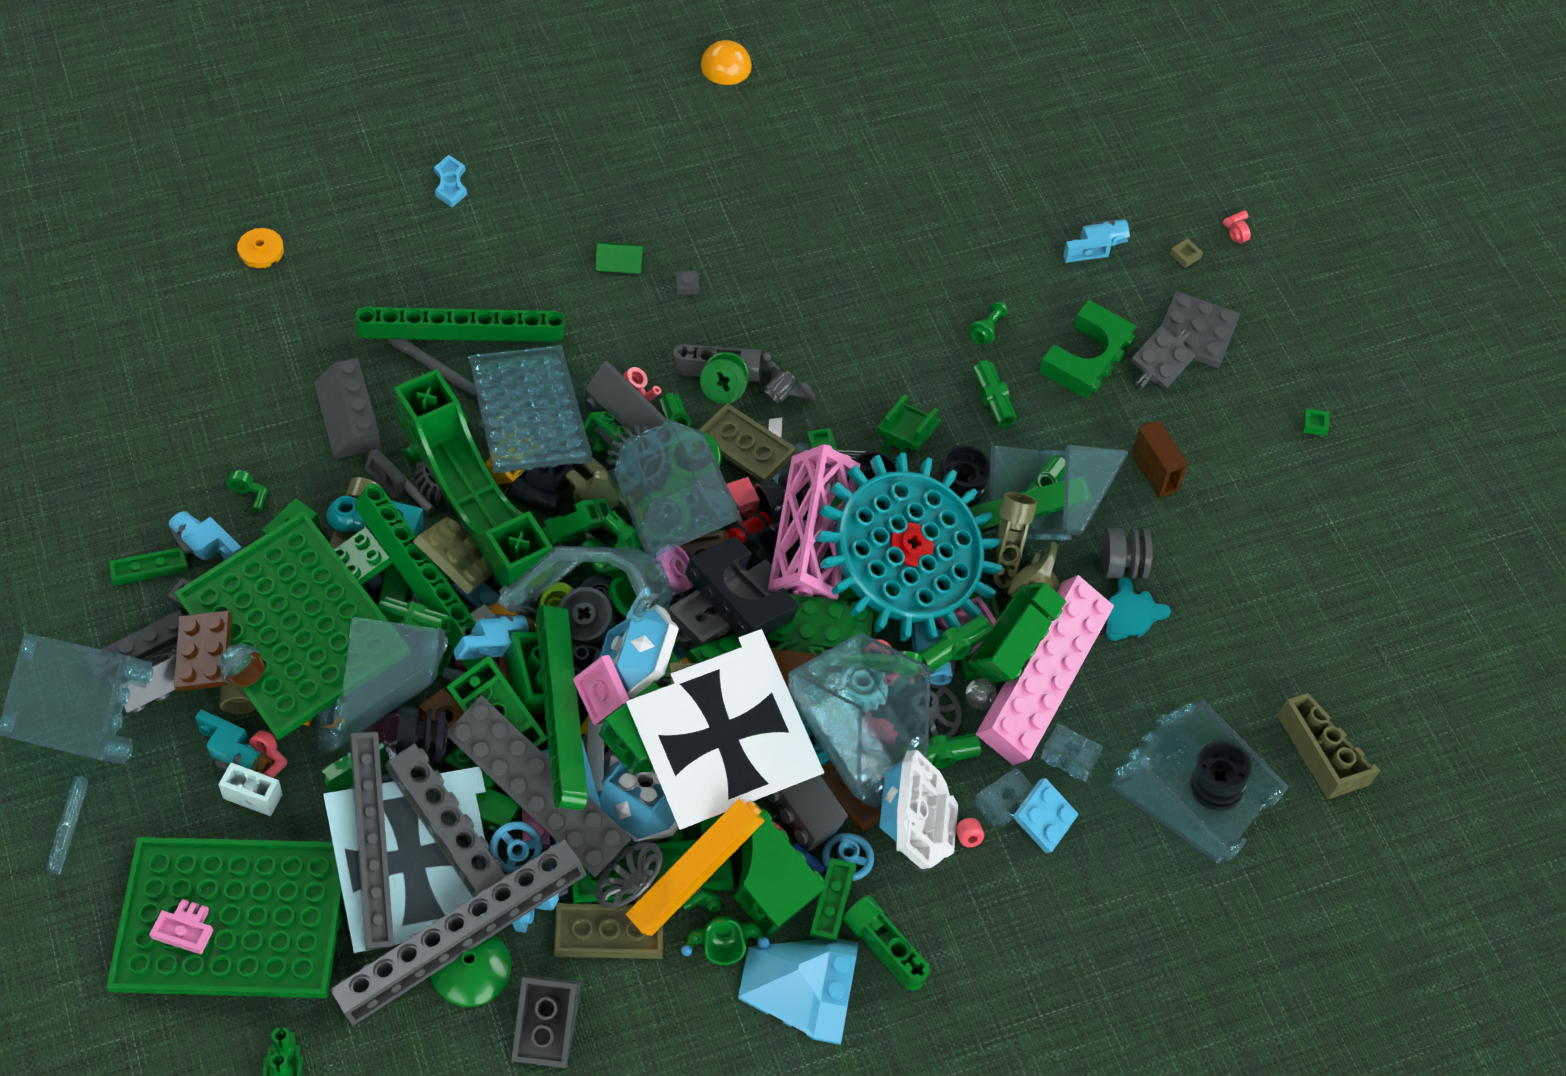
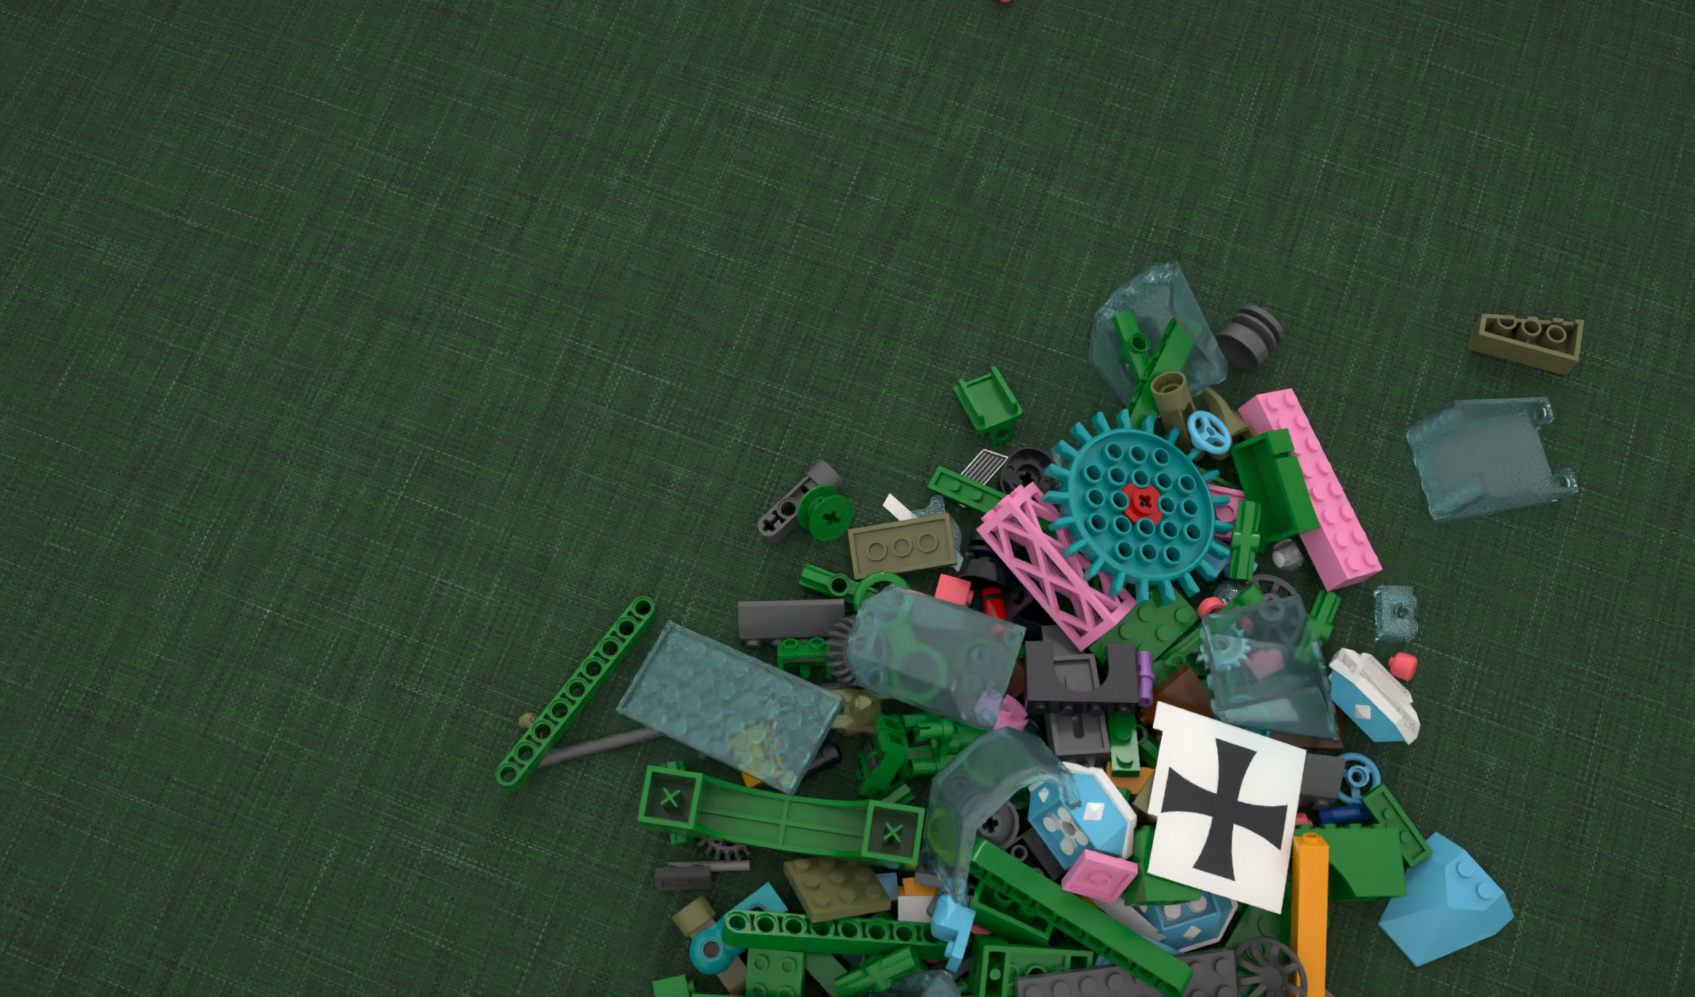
camera: 45 degrees left, 15 degrees up
(260, 247) = (341, 809): light orange plate -> none
(347, 409) = (583, 861): dark grey slope -> none
(450, 187) = (407, 583): medium azure tile -> none
(619, 257) = (611, 496): green panel -> none
(638, 380) = (759, 586): coral plate -> none
(687, 282) = (686, 461): dark grey plate -> none
(724, 939) = (1363, 939): green piece -> none
(726, 62) = (473, 241): light orange piece -> none
(782, 633) = (1145, 678): none -> medium lavender pin
(783, 384) = (864, 468): dark grey piece -> none
(866, 921) = (1432, 812): green beam -> none
(971, 468) = (1080, 389): black wheel -> none
(983, 330) = (940, 265): green piece -> none
(994, 394) = (1009, 308): green piece -> none
(1012, 562) = (1207, 435): none -> medium azure piece
(1045, 815) = (1436, 597): medium azure plate -> none
(1066, 742) = (1402, 521): clear light blue brick -> none
(1083, 374) = (1029, 170): green arch -> none
(1097, 240) = (922, 101): medium azure plate -> none
(1132, 612) = (1297, 372): teal tile -> none
(1159, 458) = (1180, 237): reddish brown brick -> none
(1162, 358) = (1081, 152): dark grey plate -> none
(1186, 253) = (992, 47): olive plate -> none
(1208, 324) = (1069, 102): dark grey plate -> none
(1220, 775) = (1515, 438): black wheel -> none
(1316, 422) = (1230, 92): green plate -> none

